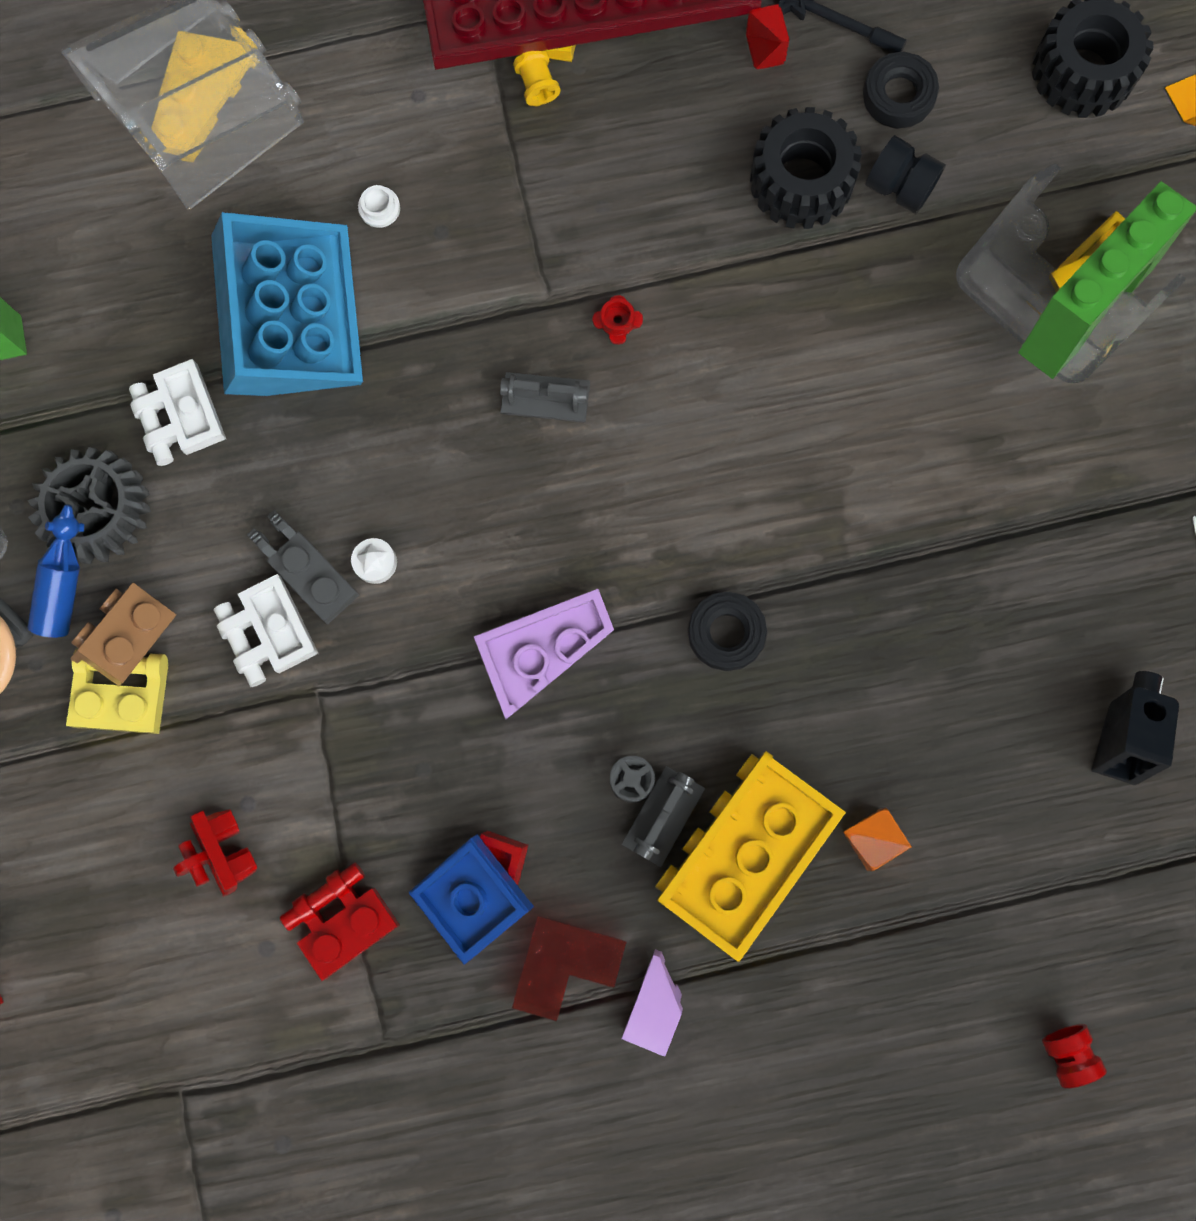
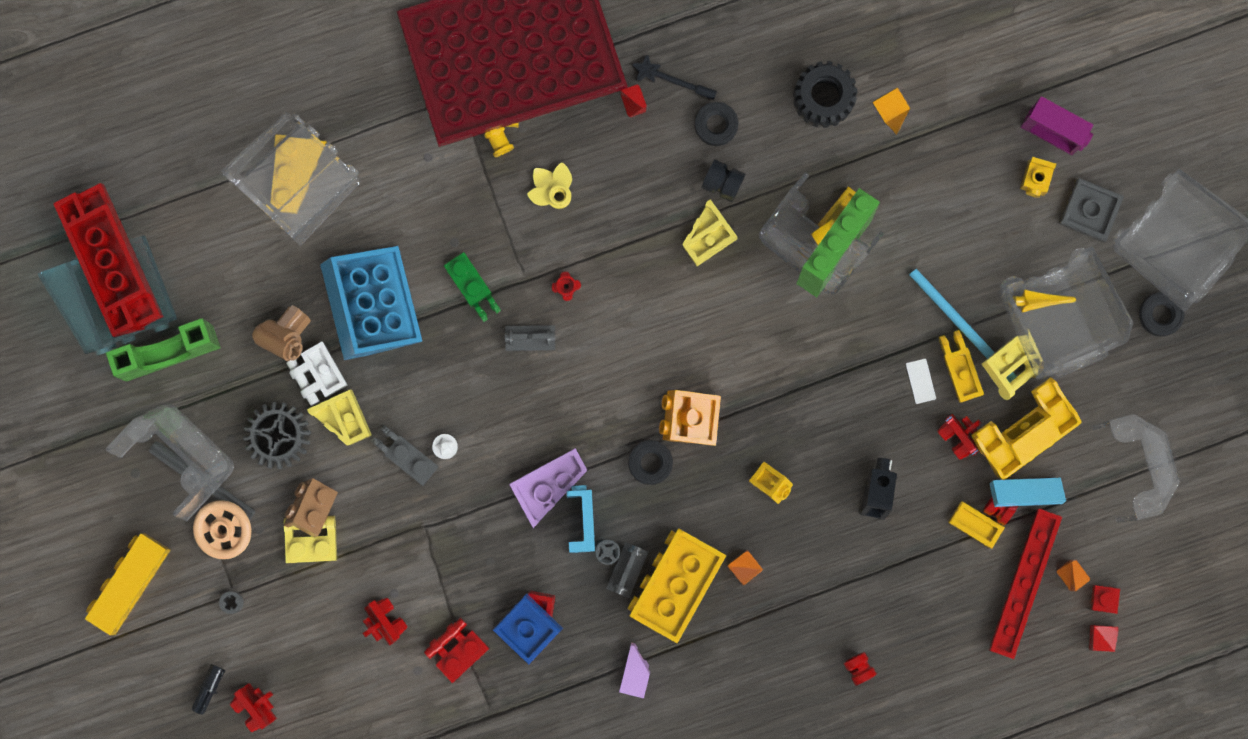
camera: 20 degrees left, 5 degrees up
(56, 579) = (268, 482): blue wheel -> none
(128, 340) = (284, 335): none -> medium nougat piece
(207, 489) = (342, 417): none -> light yellow wing
(277, 624) = (395, 489): white plate -> none
(378, 206) = (415, 233): white plate -> none
(458, 299) = (470, 284): none -> green hinge
(556, 954) = (579, 651): clear red plate -> none
(596, 761) = (588, 544): none -> medium azure panel
(612, 156) = (550, 184): none -> light yellow plate
(806, 560) = (690, 417): none -> light orange plate
(812, 138) = (674, 165): black tyre -> none
(870, 263) = (708, 235): none -> light yellow wing
(939, 692) = (771, 483): none -> yellow bracket

